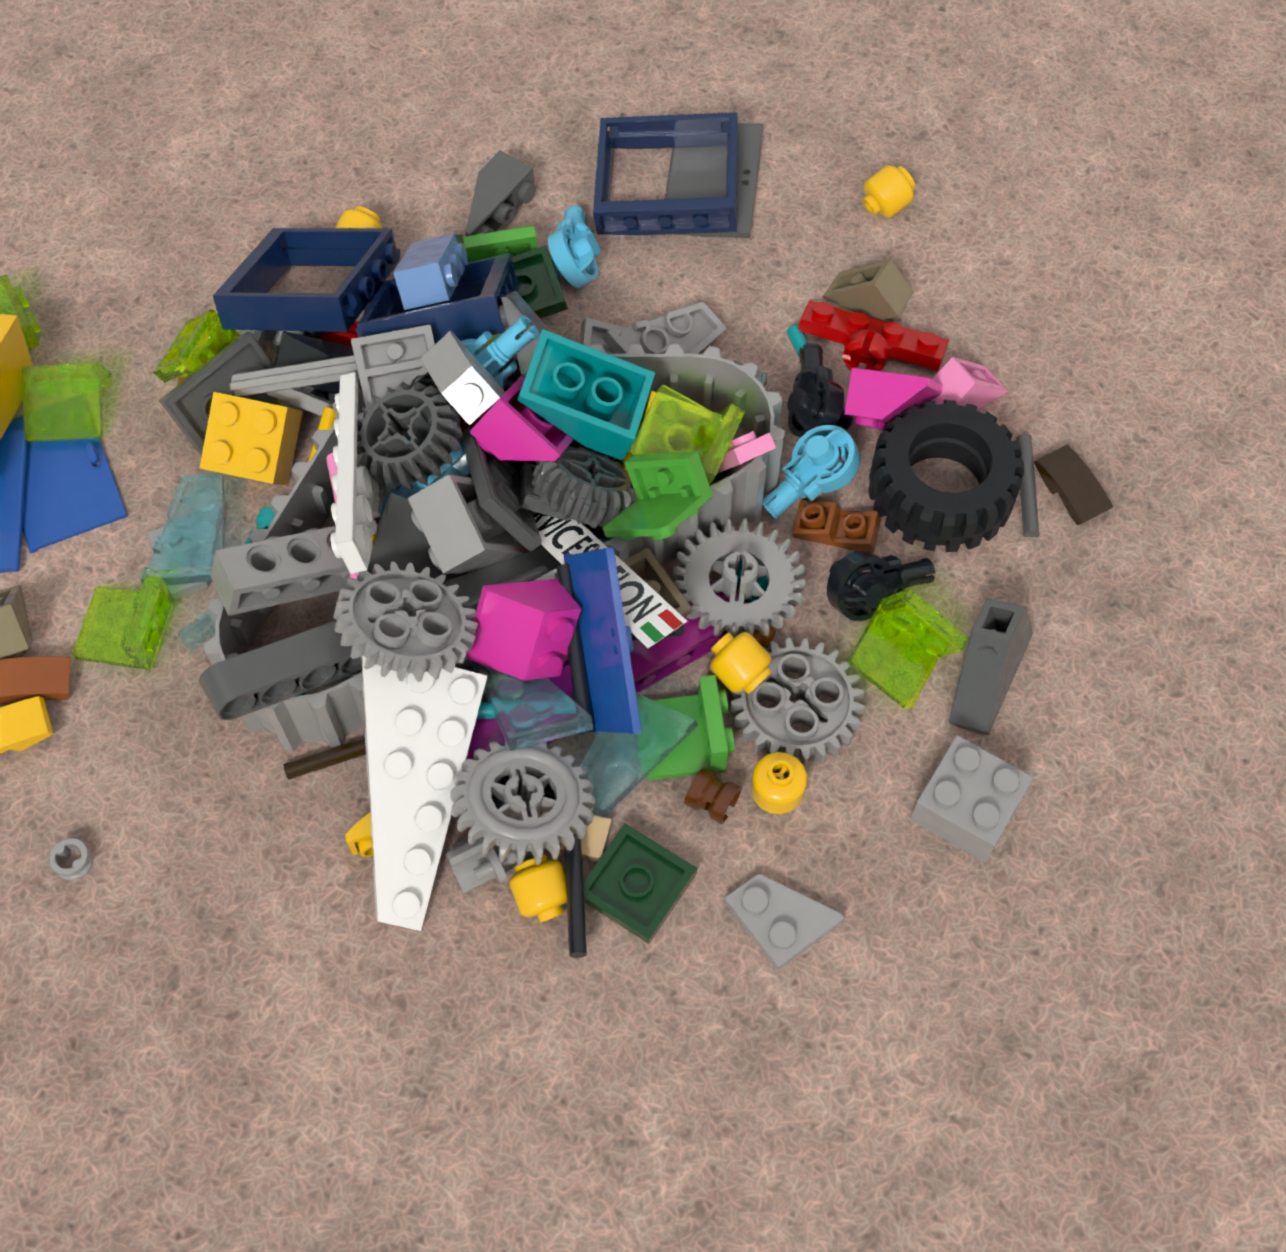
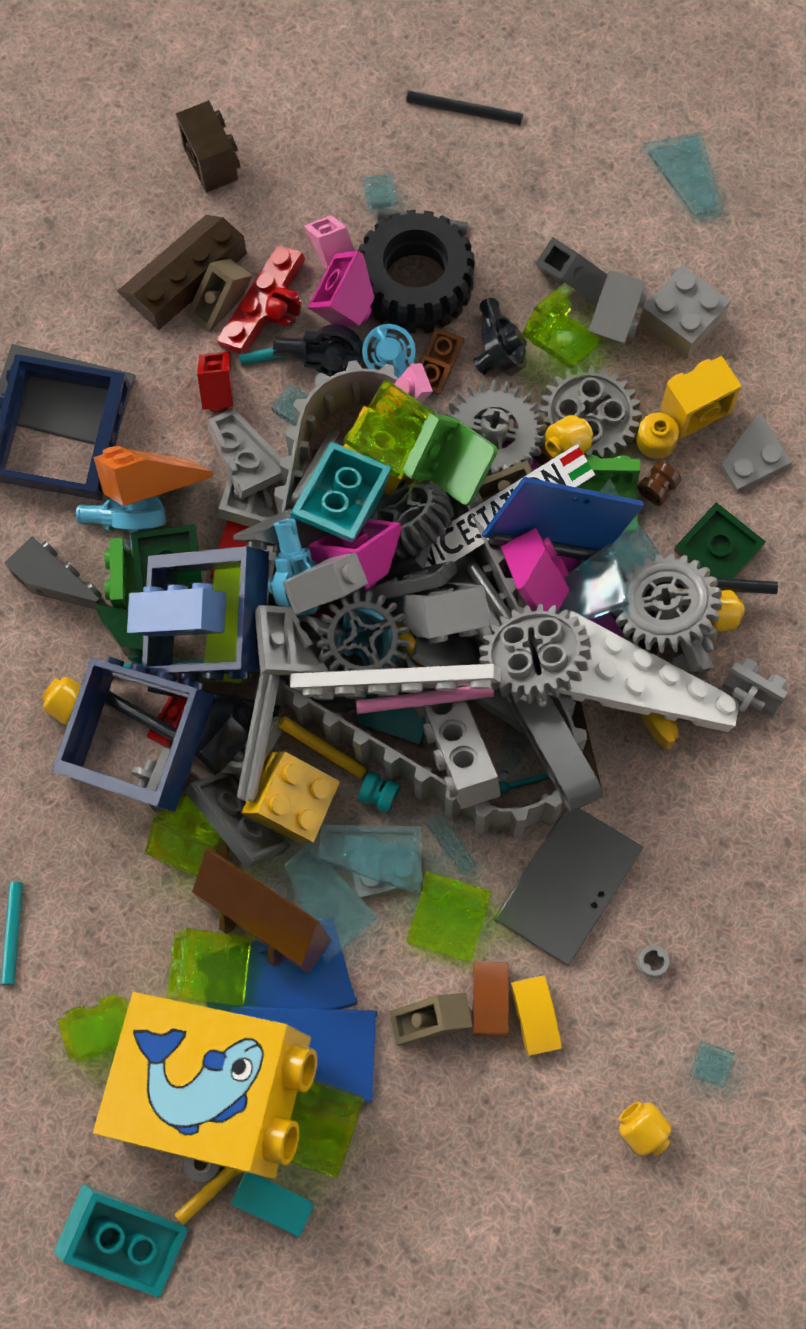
camera: 80 degrees left, 10 degrees up
(109, 237) = (11, 933): none -> teal bar
(111, 427) = (259, 913): none -> reddish brown piece
(138, 506) = (328, 899): none -> clear light blue wing
(177, 749) = (563, 881): none -> dark grey container
(449, 929) = (754, 689): none -> light grey hips
(617, 243) = (139, 475): none -> orange slope
(755, 303) = (215, 381): none -> red slope
(840, 822) = (701, 395): none -> yellow brick
(859, 239) = (175, 274): none -> dark brown slope
(888, 191) = (115, 257): yellow head -> none
(945, 698) = (618, 306): none -> light grey brick
(1049, 243) = (208, 145): none -> dark brown brick
(1052, 431) = (379, 191): none -> clear light blue plate
(1075, 483) = (426, 188): dark brown slope -> none
(1196, 789) = (688, 171): none -> clear light blue wing
(1206, 511) = (464, 107): none -> black bar

